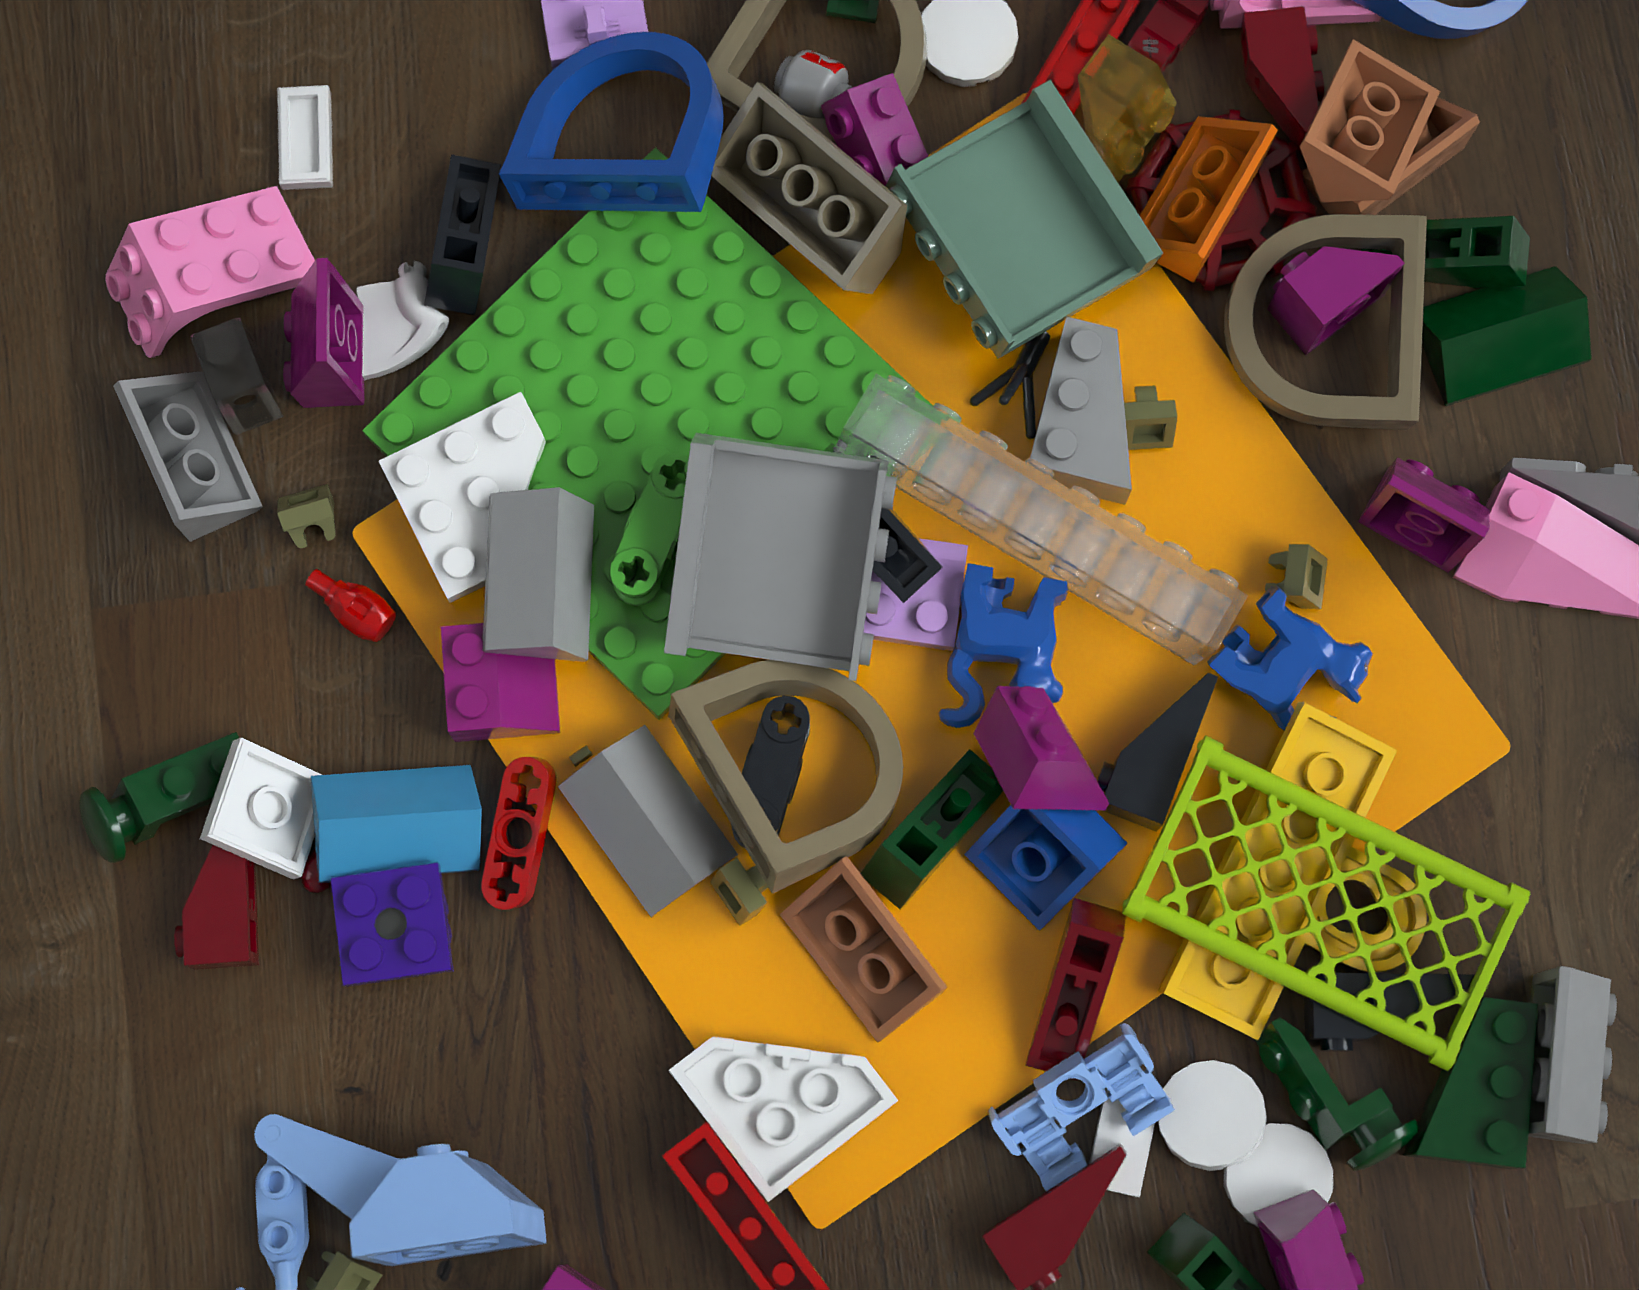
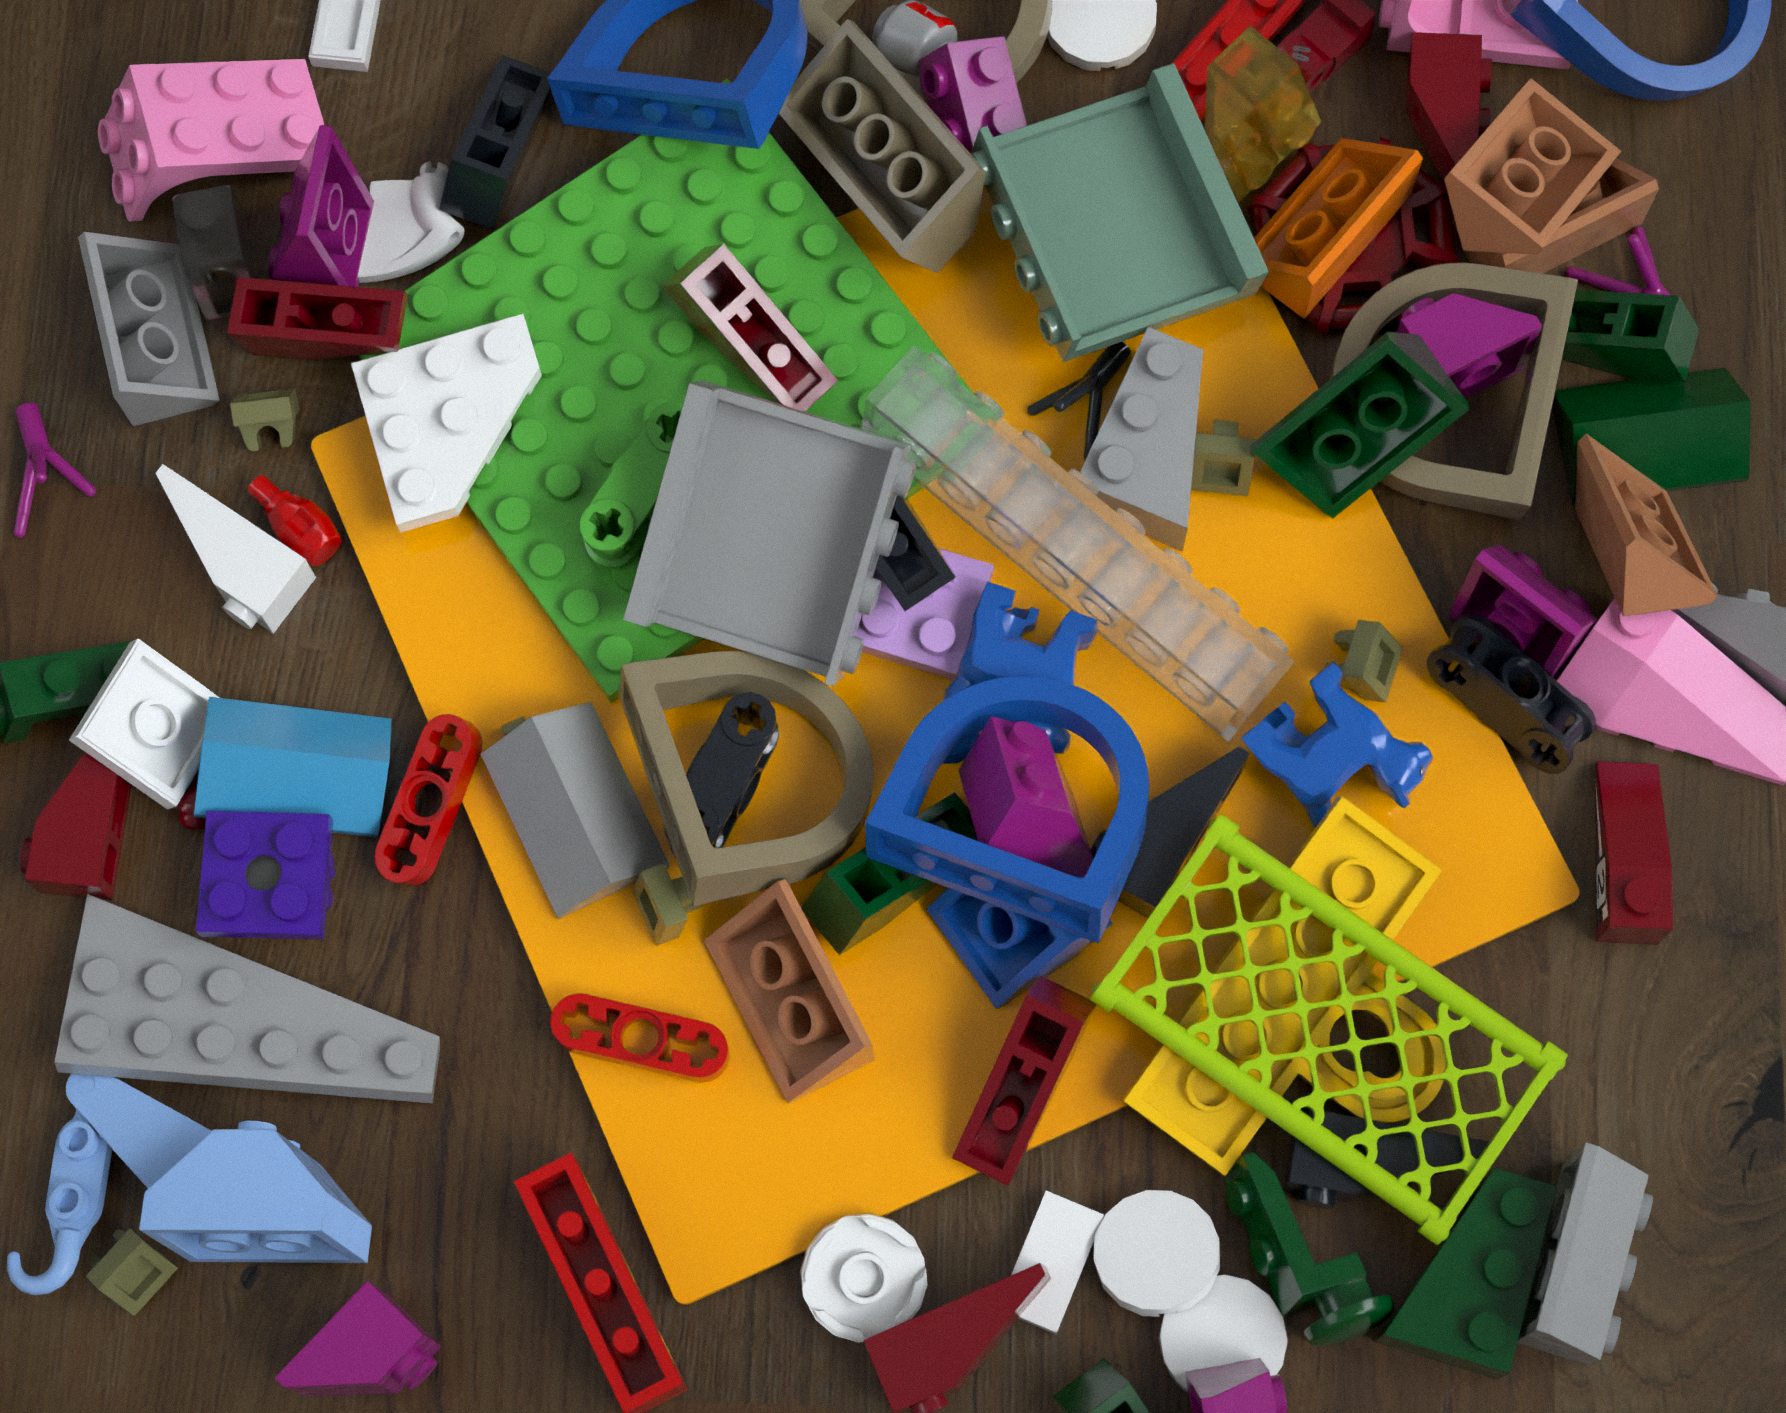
camera: 15 degrees right, 5 degrees down
(113, 582) = (38, 452): none -> magenta plant
(316, 650) = (247, 565): none -> white slope
(339, 424) = (315, 319): none -> dark red slope
(355, 1053) = (196, 1014): none -> light grey wing
(495, 692) = (438, 627): magenta slope -> none
(538, 574) = (503, 513): light grey slope -> none
(701, 1018) = (599, 1011): none -> red beam
(721, 373) = (749, 328): none -> slope
(781, 1104) = (663, 1152): white plate -> none
(968, 1179) = (863, 1276): none -> white tile
(1018, 822) = (989, 873): none -> blue window
(1034, 1115) = (949, 1217): light blue piece -> none
(1267, 373) = (1363, 422): none -> dark green slope
(1426, 584) = (1511, 693): none -> black piece
(1485, 206) = (1645, 263): none -> magenta plant
(1510, 431) = (1637, 535): none -> nougat slope
(1548, 704) = (1631, 855): none -> dark red slope

